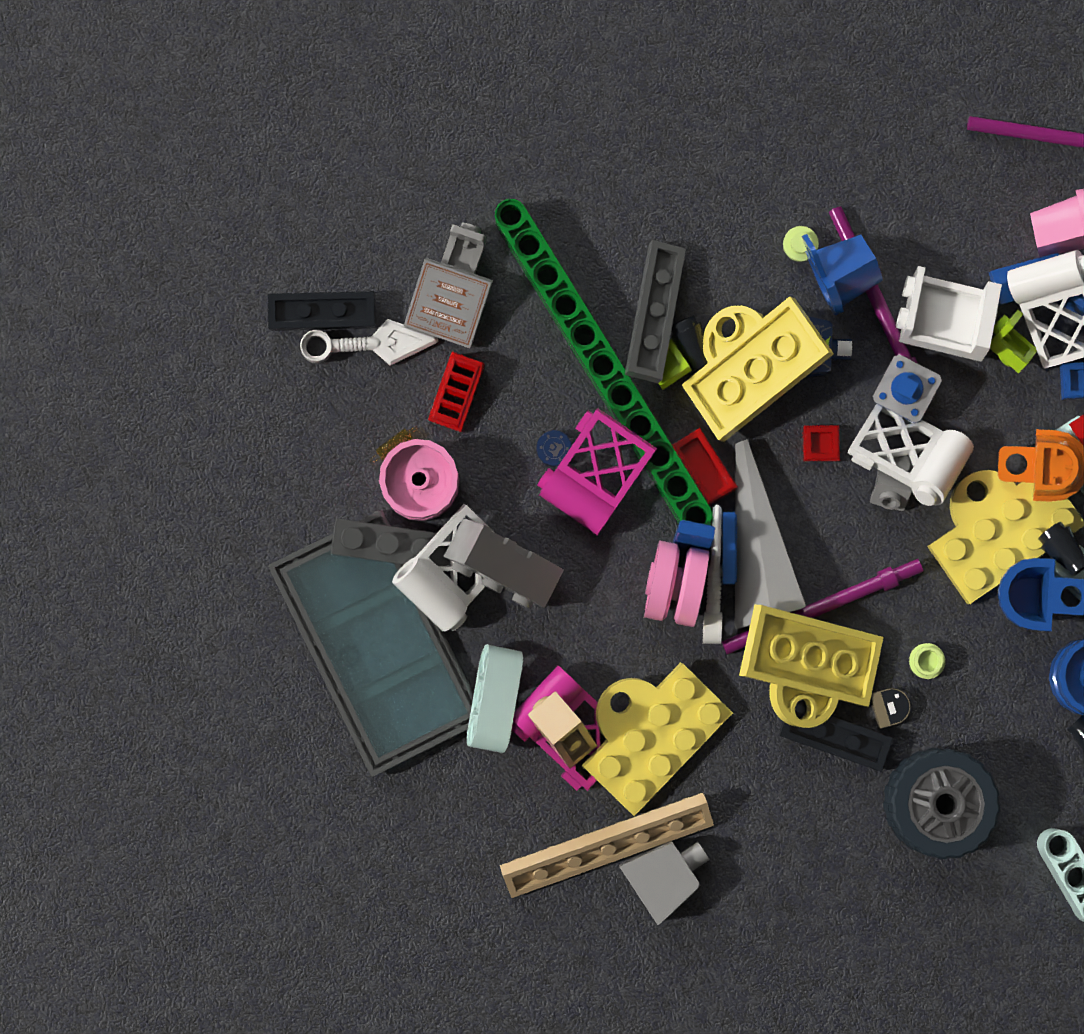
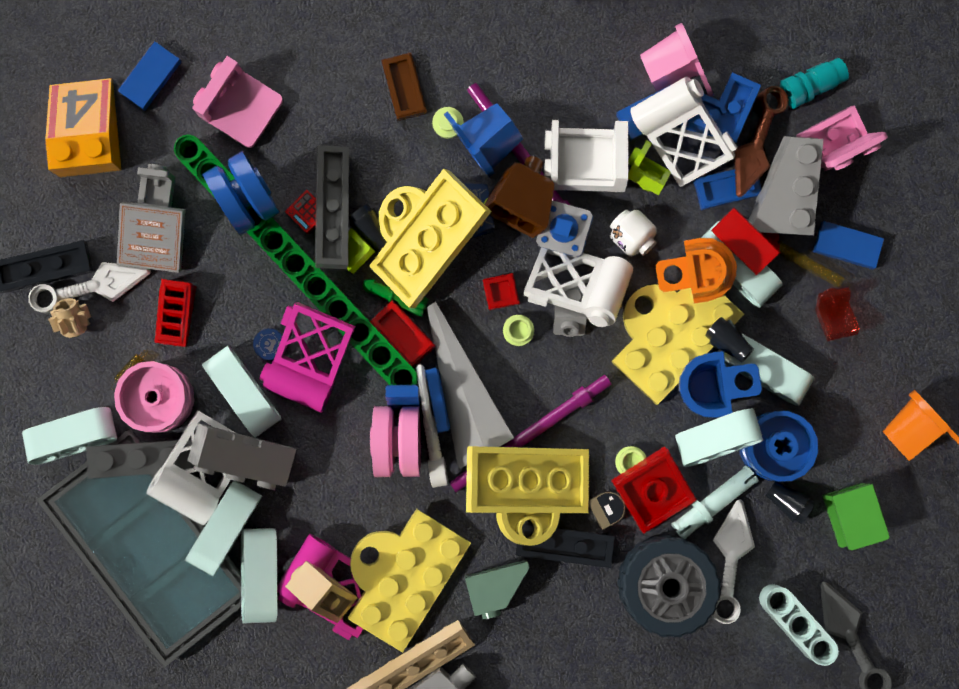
camera: 10 degrees left, 0 degrees up
(316, 502) = (69, 435): none -> light aqua beam
(342, 373) = (69, 317): none -> tan gear
(395, 166) = (82, 128): none -> light orange slope
(466, 639) = (223, 528): none -> light aqua beam
(480, 123) = (149, 76): none -> blue tile
(514, 493) = (241, 391): none -> light aqua beam
(569, 276) = (242, 192): none -> blue wheel
(572, 175) = (237, 103): none -> bright pink bracket
(621, 310) = (304, 212): none -> tile
(693, 417) = (386, 292): none -> green piece
(749, 767) = (494, 587): none -> sand green slope
(759, 193) = (404, 86): none -> reddish brown tile
(832, 490) = (518, 330): none -> yellowish green plate
(869, 345) = (523, 197): none -> reddish brown torso
(946, 696) = (654, 490): none -> red tile
(982, 409) = (633, 232): none -> white head
(996, 731) = (704, 511): none -> light aqua pin
(1022, 772) = (734, 541): none -> white piece
(1030, 653) = (719, 437): none -> light aqua beam

